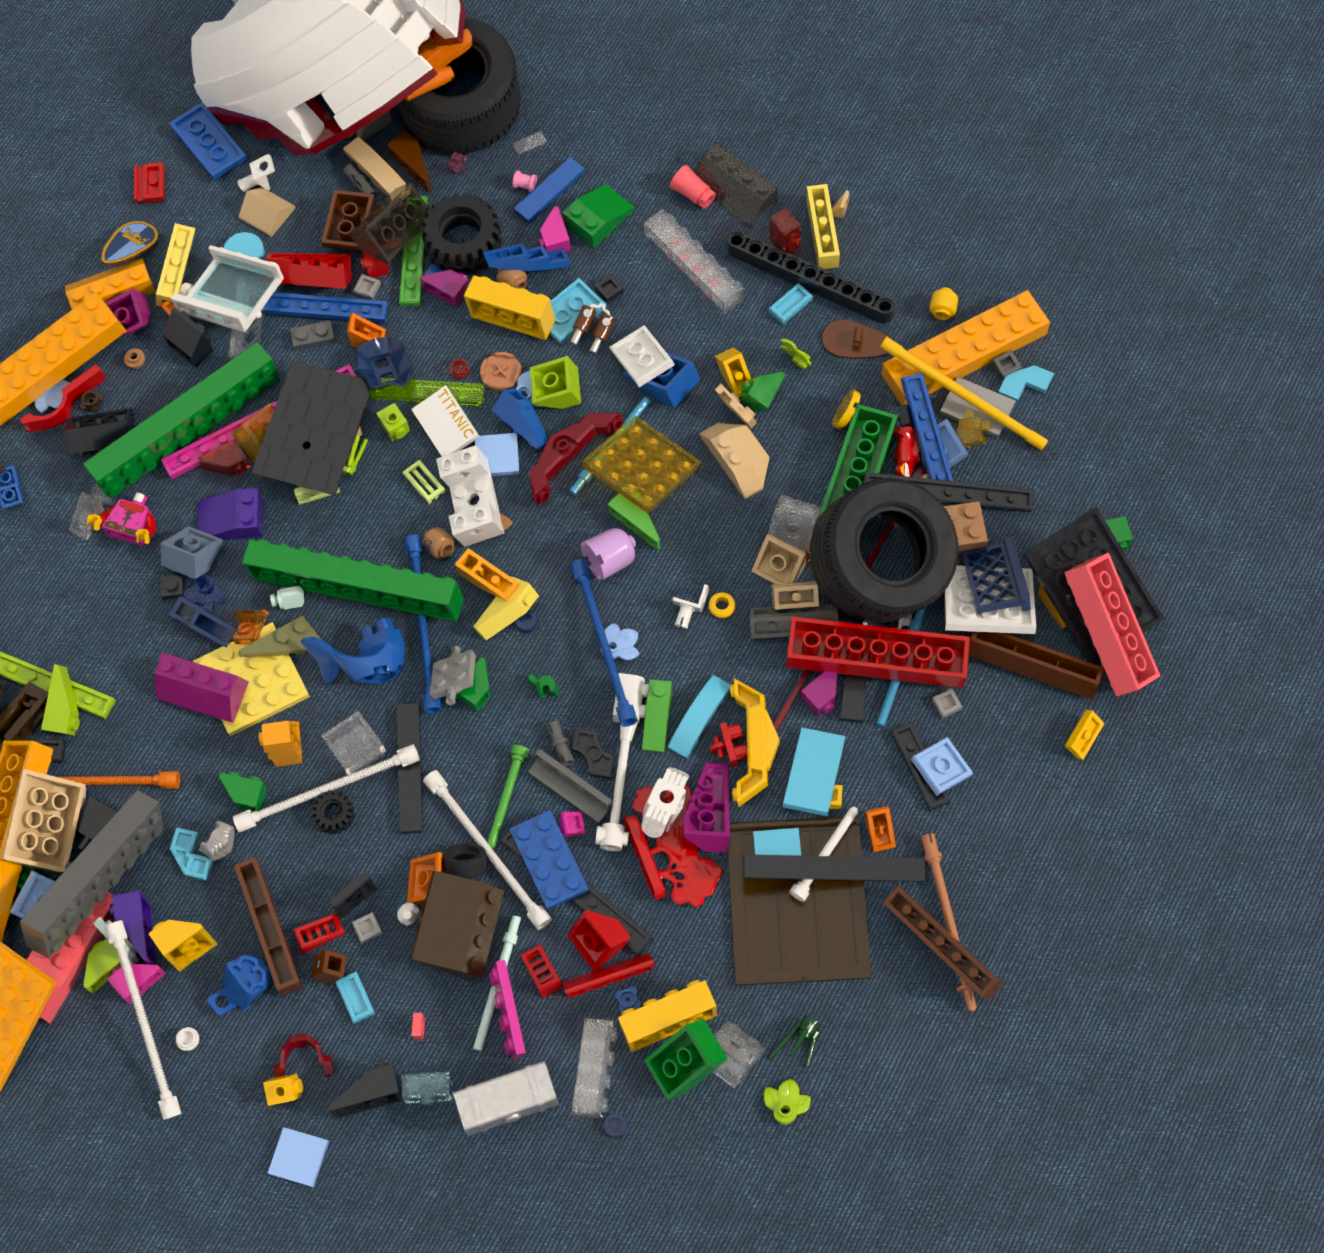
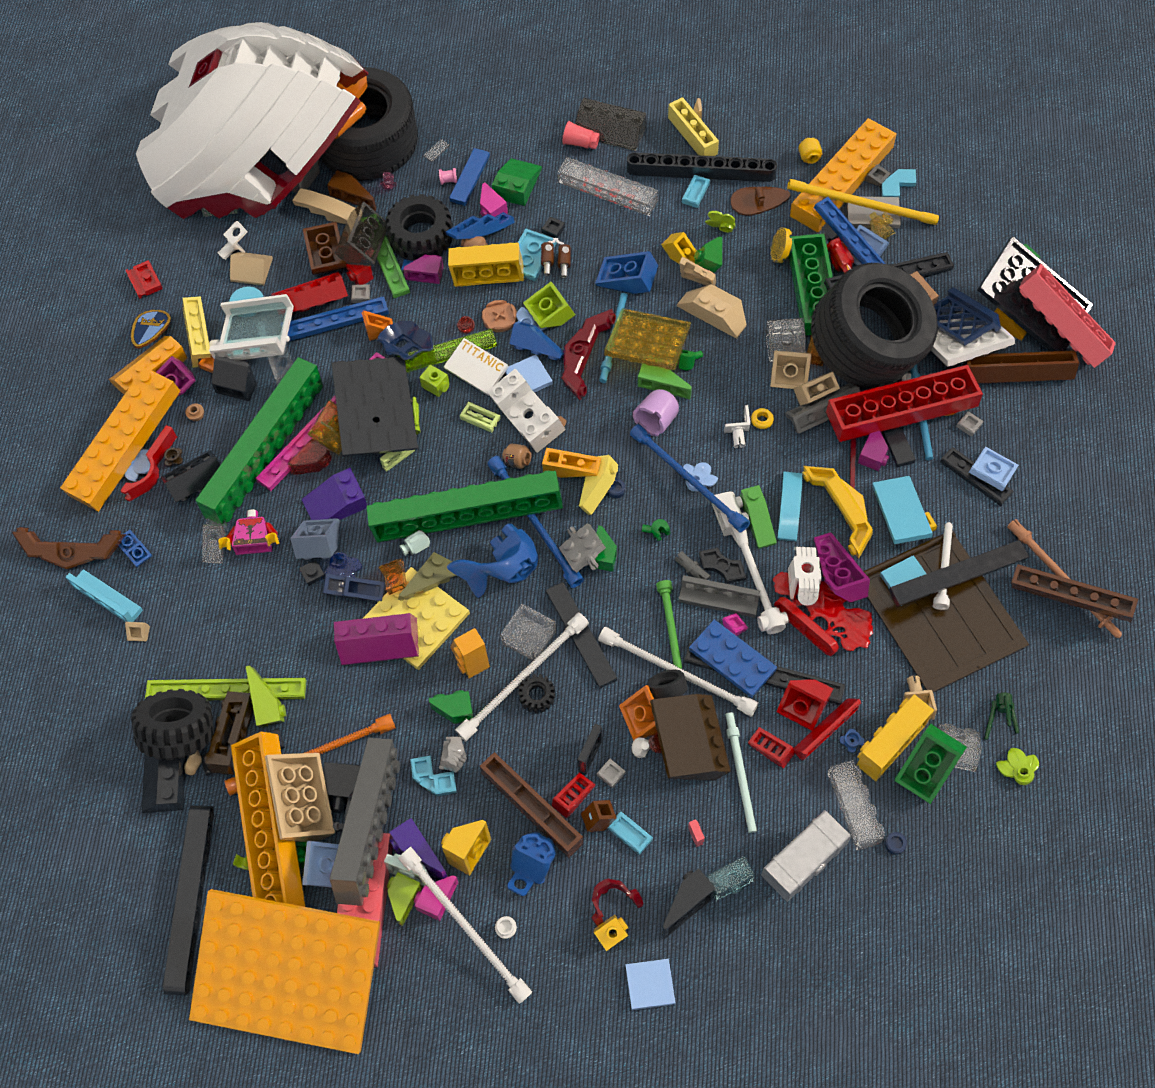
camera: 25 degrees left, 5 degrees down
(208, 141) = (178, 233): blue plate -> none
(312, 335) = (334, 343): dark grey plate -> none
(358, 180) = (308, 217): dark grey pin -> none
(505, 1002) = (766, 786): dark pink plate -> none
(641, 356) = (605, 264): white tile -> none
(675, 504) = (688, 358): none -> green piece
(721, 982) = (926, 695): none -> tan bracket
(729, 734) = (823, 518): red hips -> none
(785, 231) = (668, 139): clear red brick -> none
(880, 828) = (974, 531): orange slope -> none
(1084, 734) = (1083, 405): yellow plate -> none

